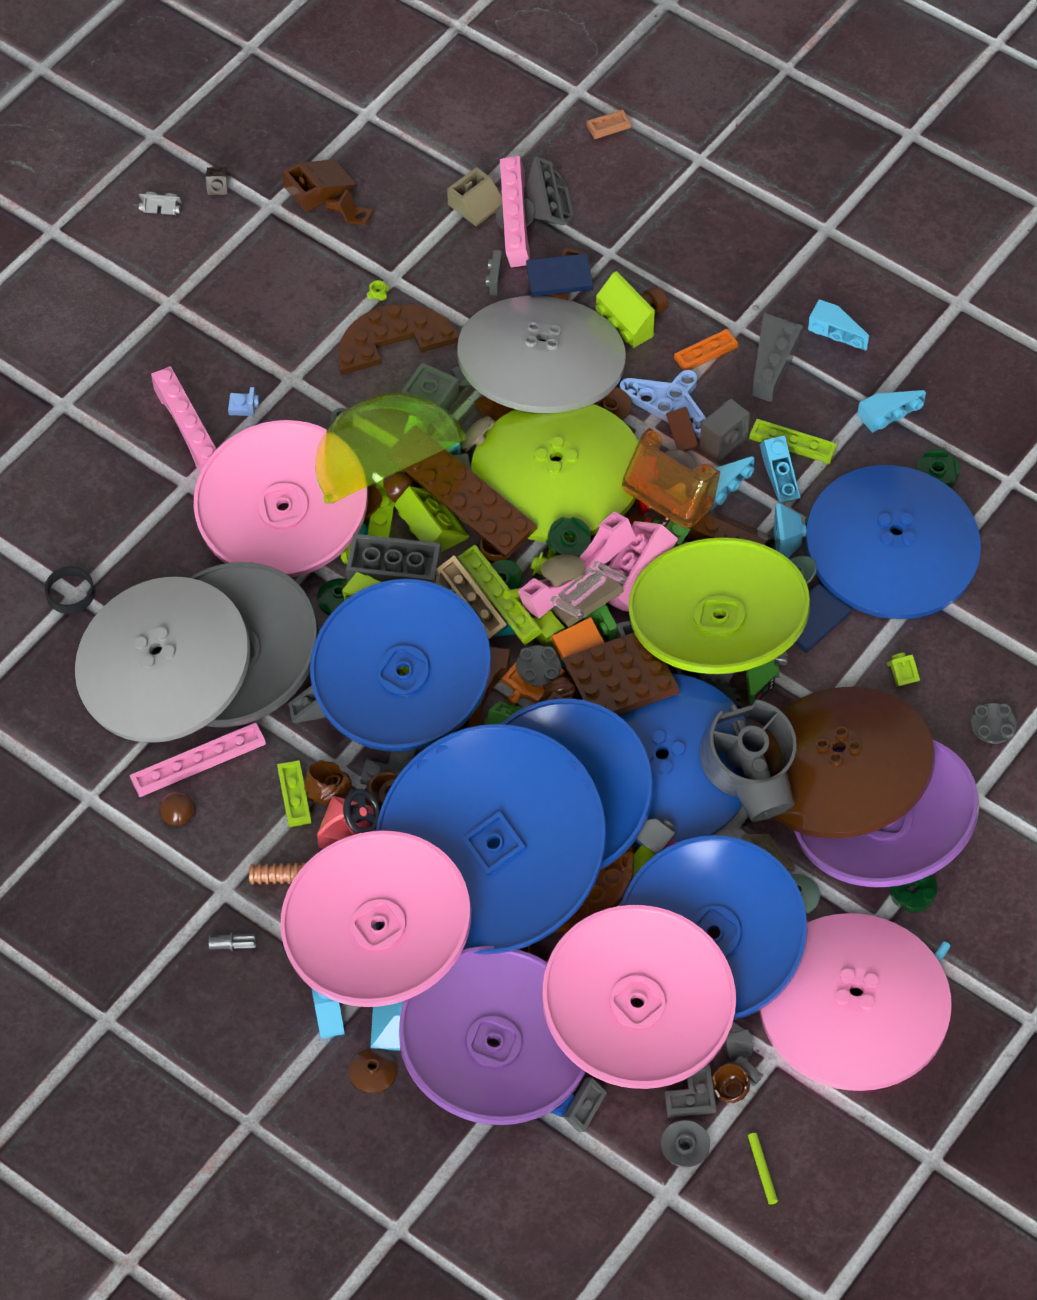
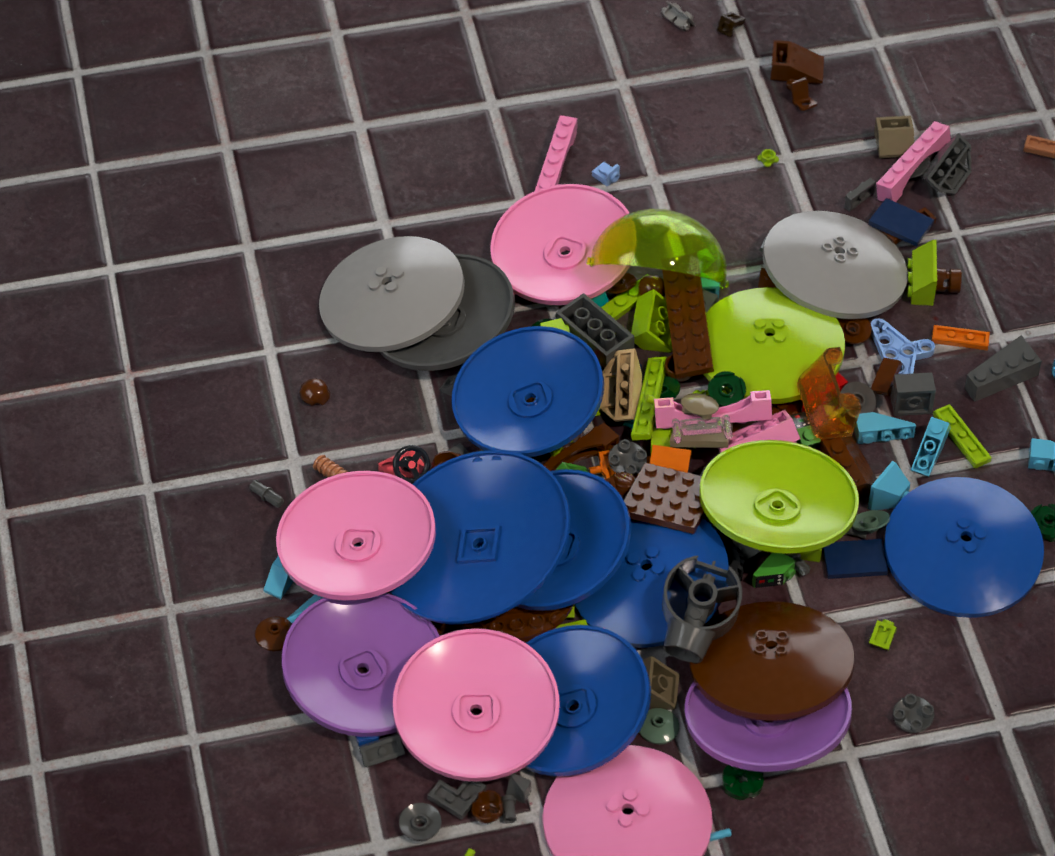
camera: 40 degrees right, 5 degrees down
(70, 608) = (382, 203): black tyre -> none
(197, 759) = (356, 371): bright pink plate -> none
(294, 793) = (394, 432): lime plate -> none
(326, 780) = (419, 433): reddish brown hair -> none
(388, 326) = (750, 184): reddish brown plate -> none
(433, 385) = (736, 241): dark grey container -> none
(476, 433) = (738, 286): dark tan dish -> none
(605, 622) = (701, 457): bright green slope -> none
(657, 834) = (594, 613): dark grey slope -> none

